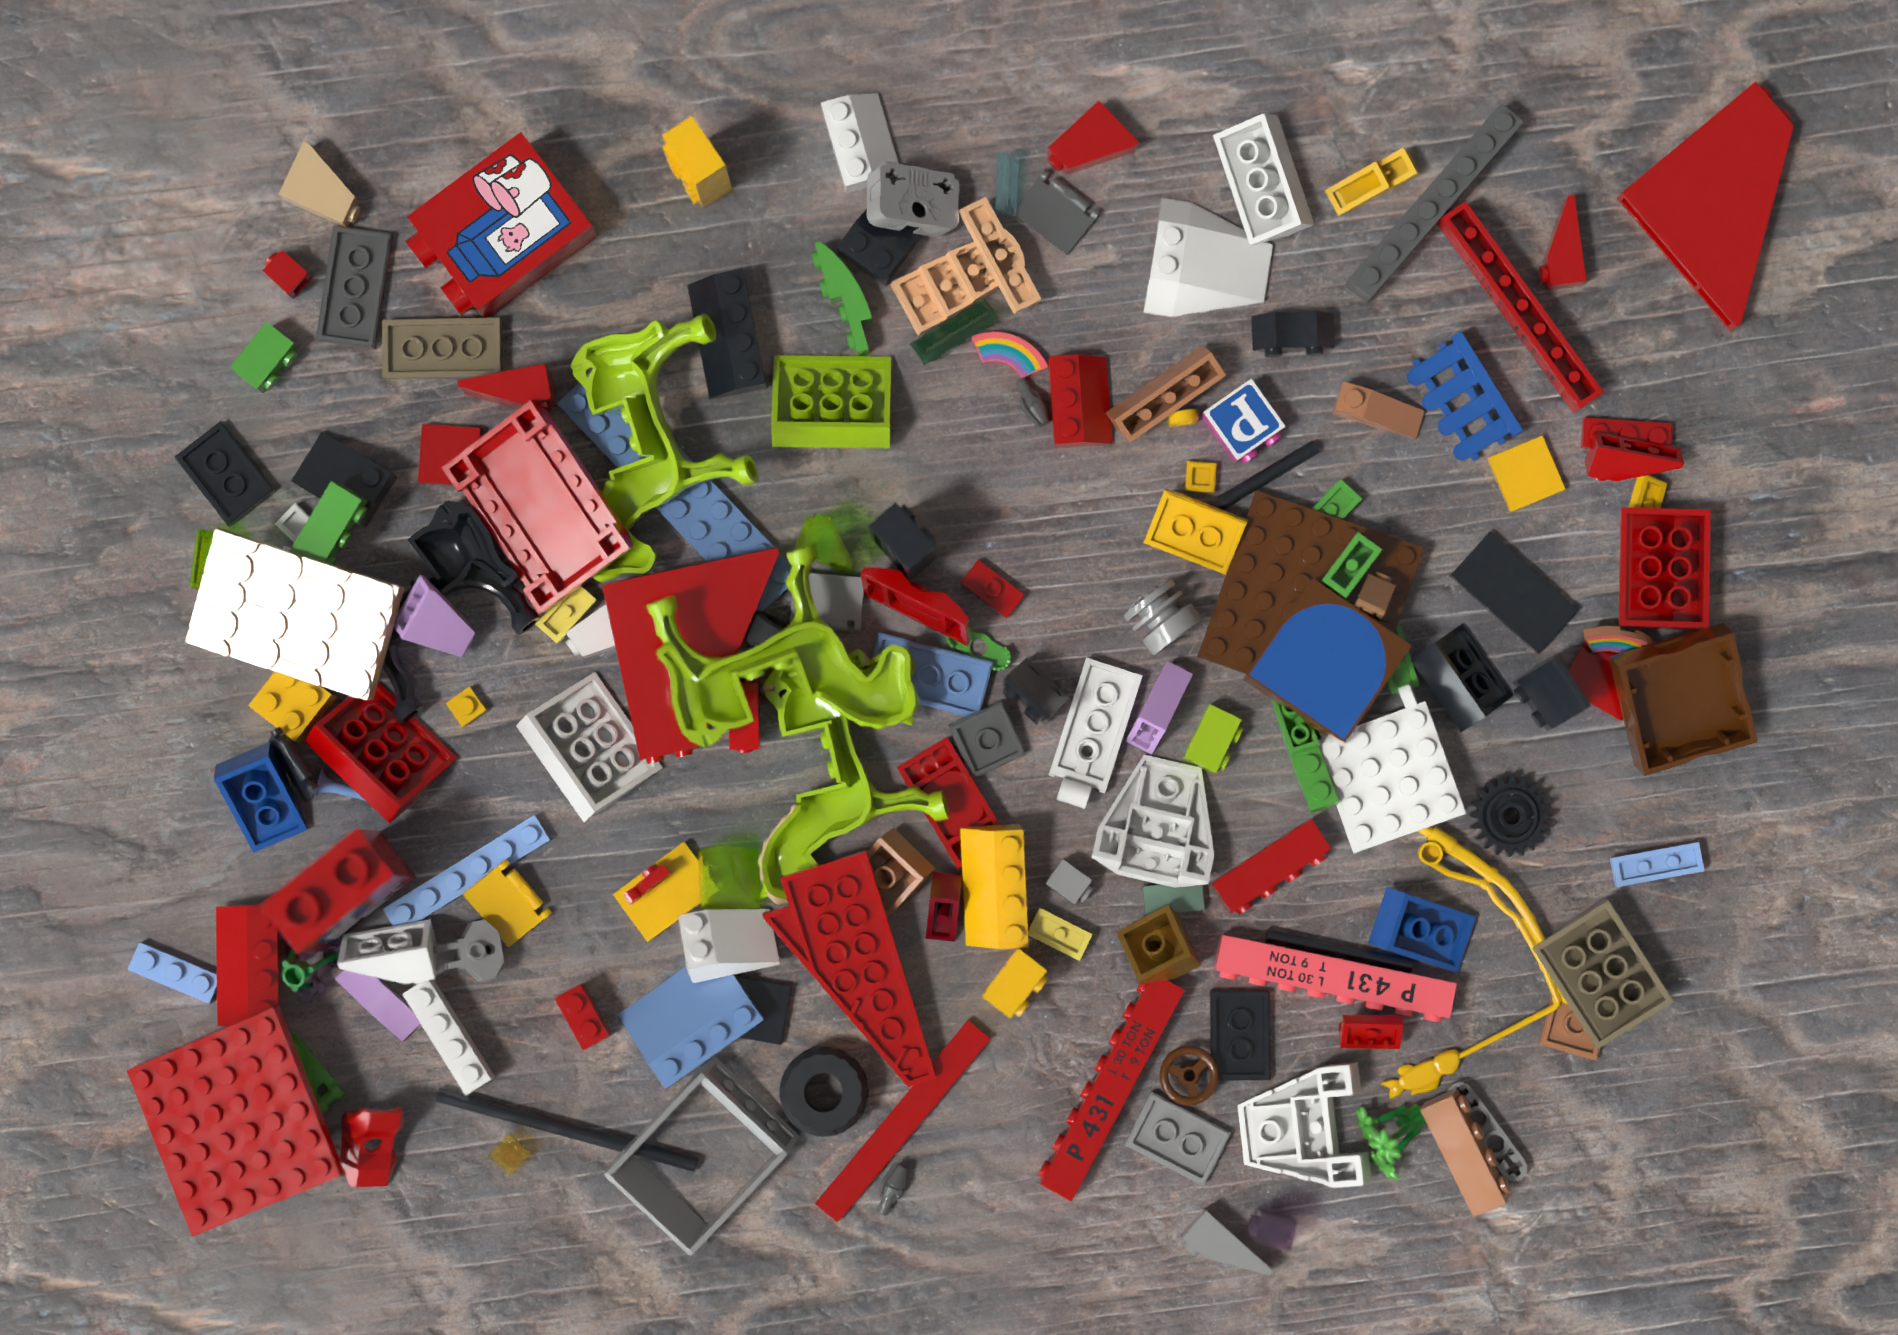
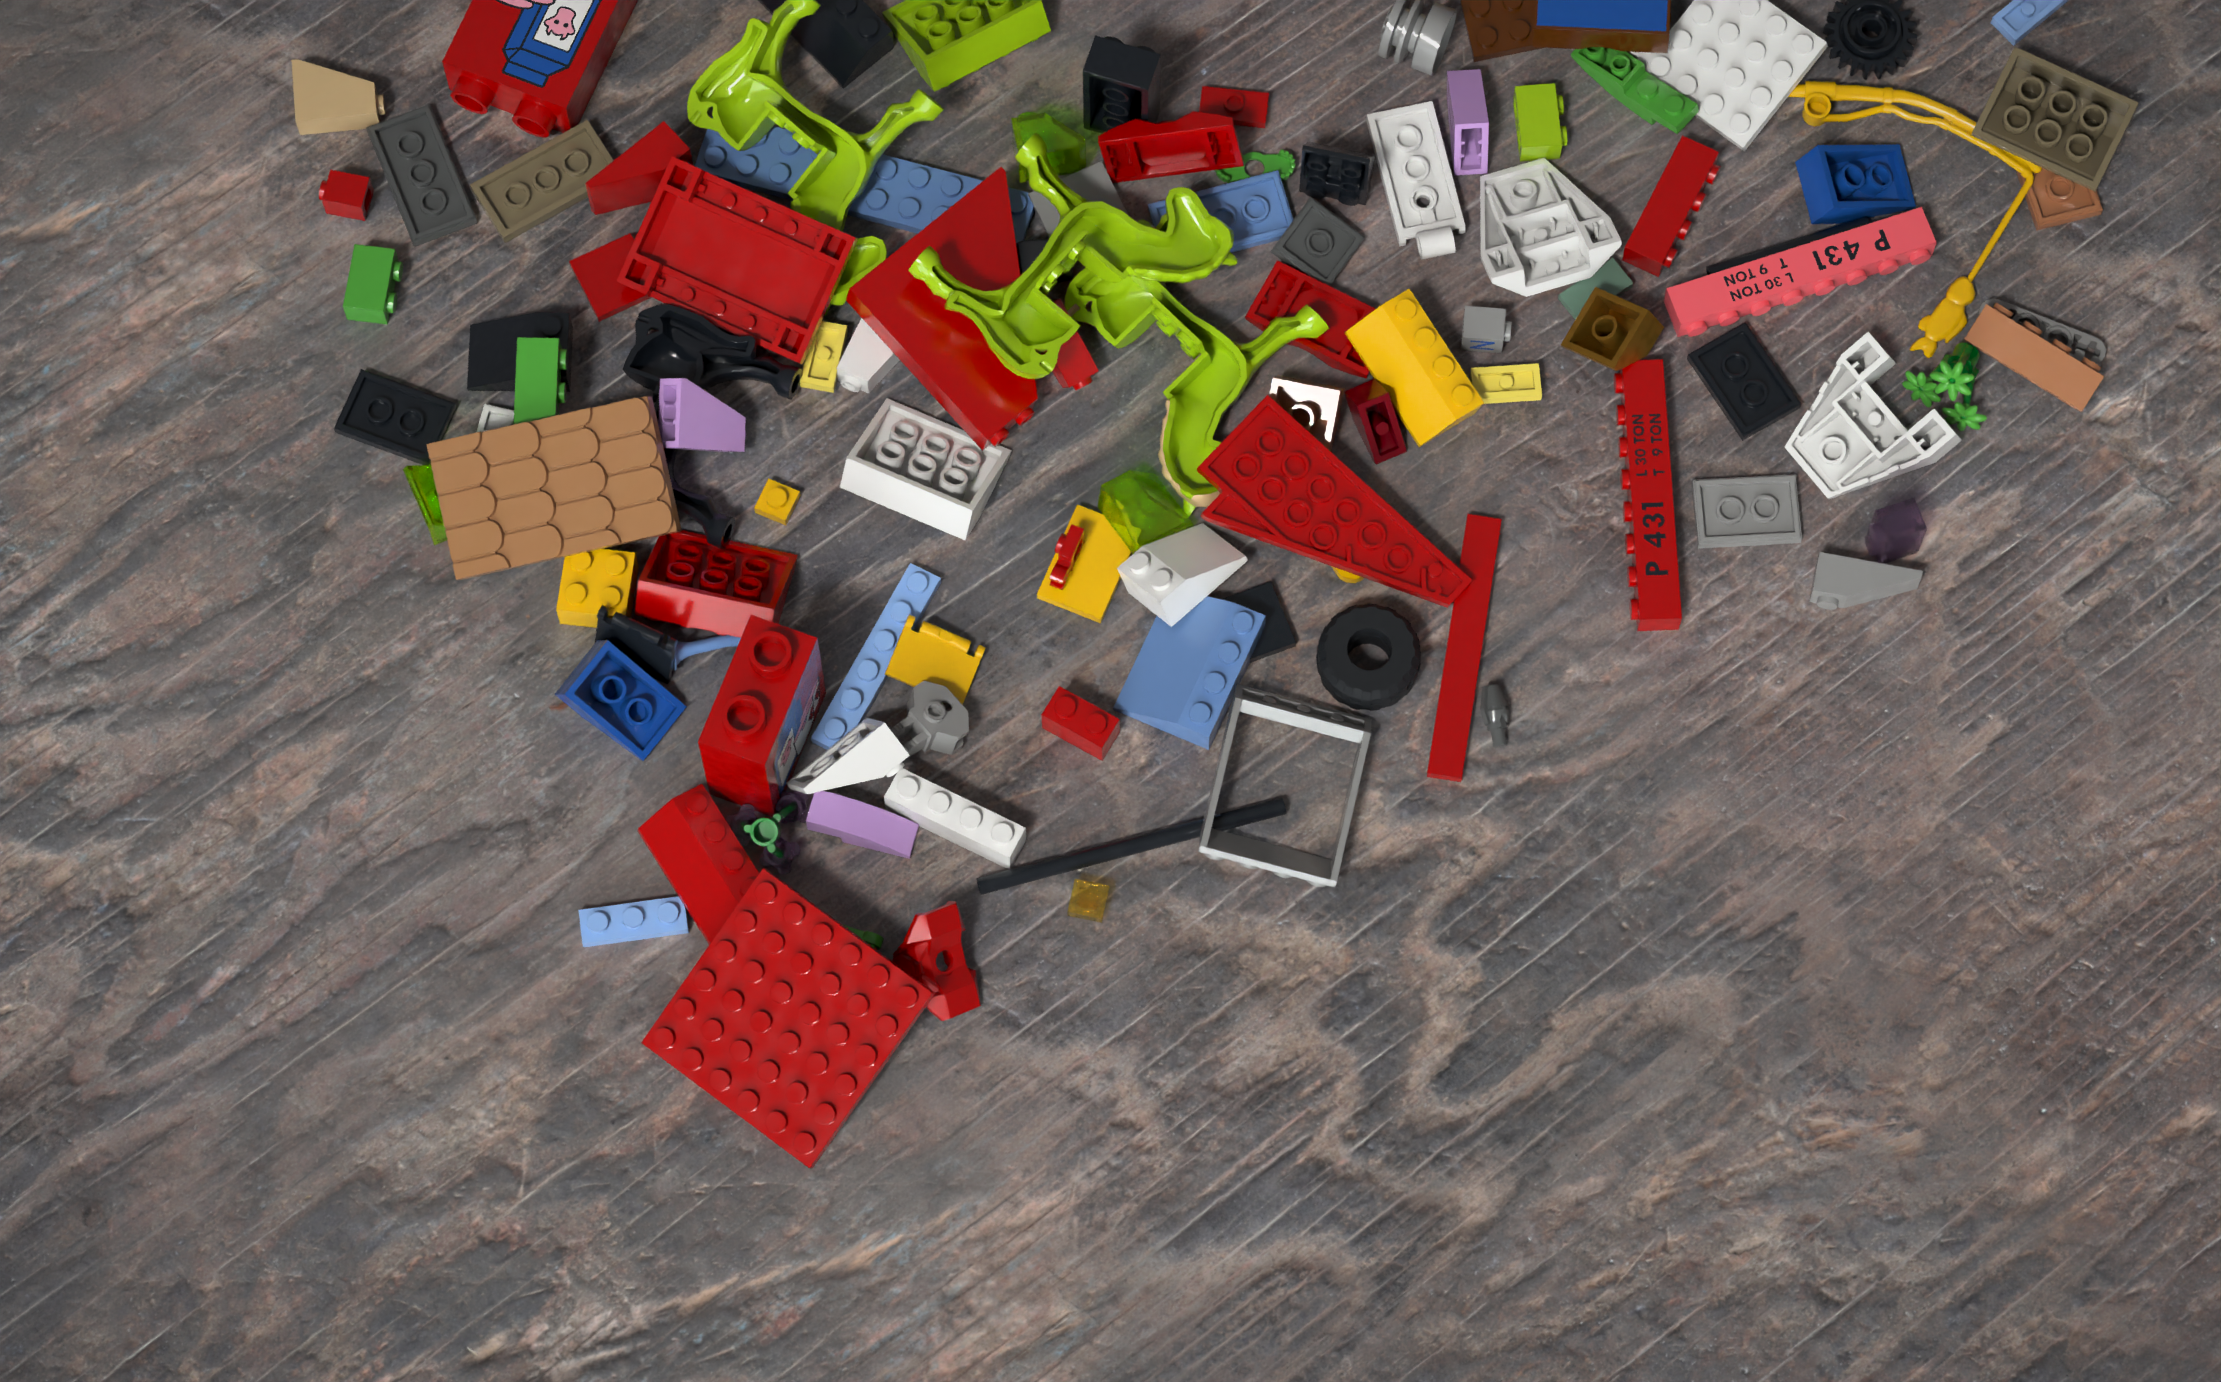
camera: 30 degrees left, 15 degrees down
(1015, 983) = (1494, 446): yellow brick -> none
(1206, 1060) = (1714, 451): reddish brown piece -> none
(1370, 1031) = (1868, 297): red bracket -> none

